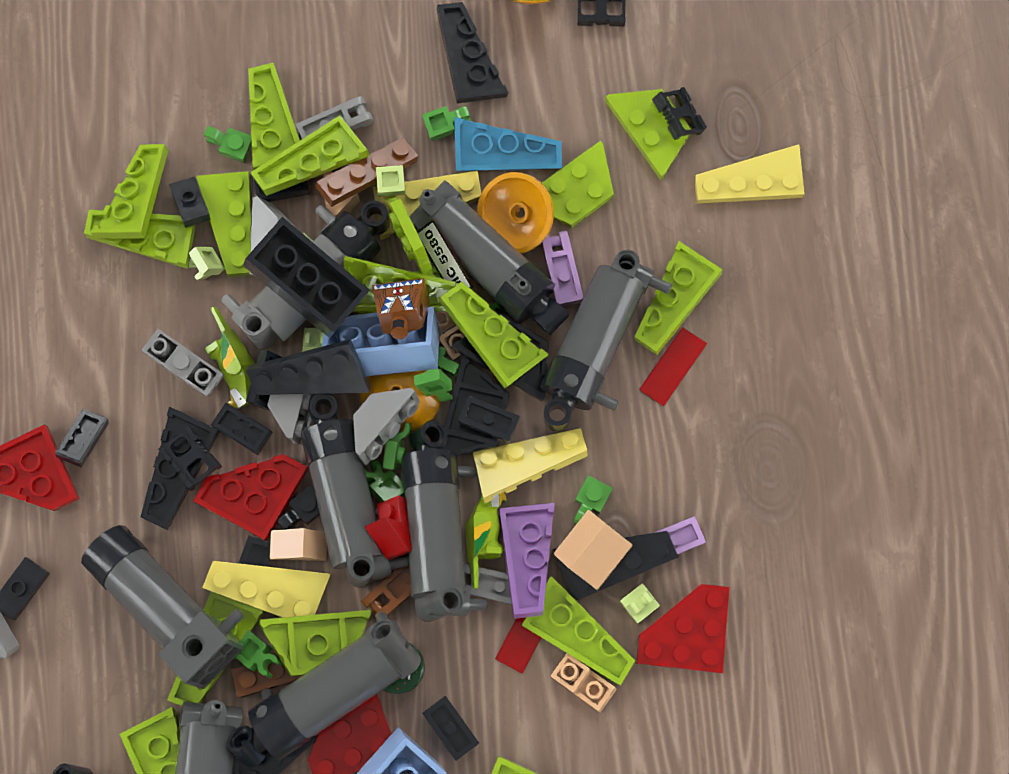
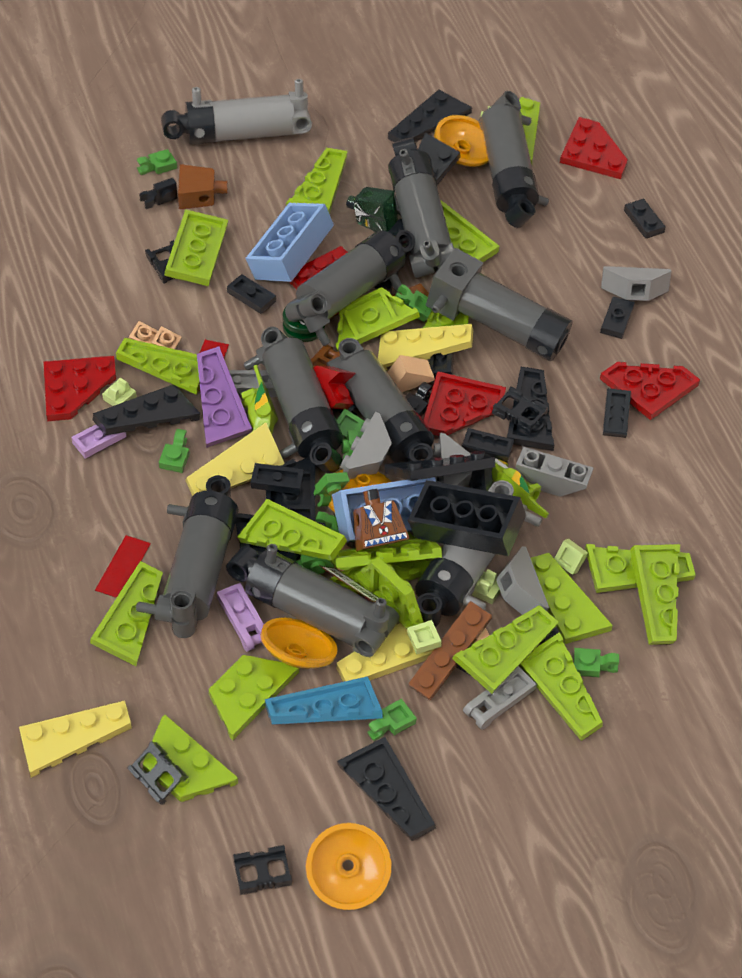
camera: 160 degrees right, 25 degrees down
(189, 202) = (607, 598): black plate -> none
(592, 549) = (167, 406): light nougat slope -> none

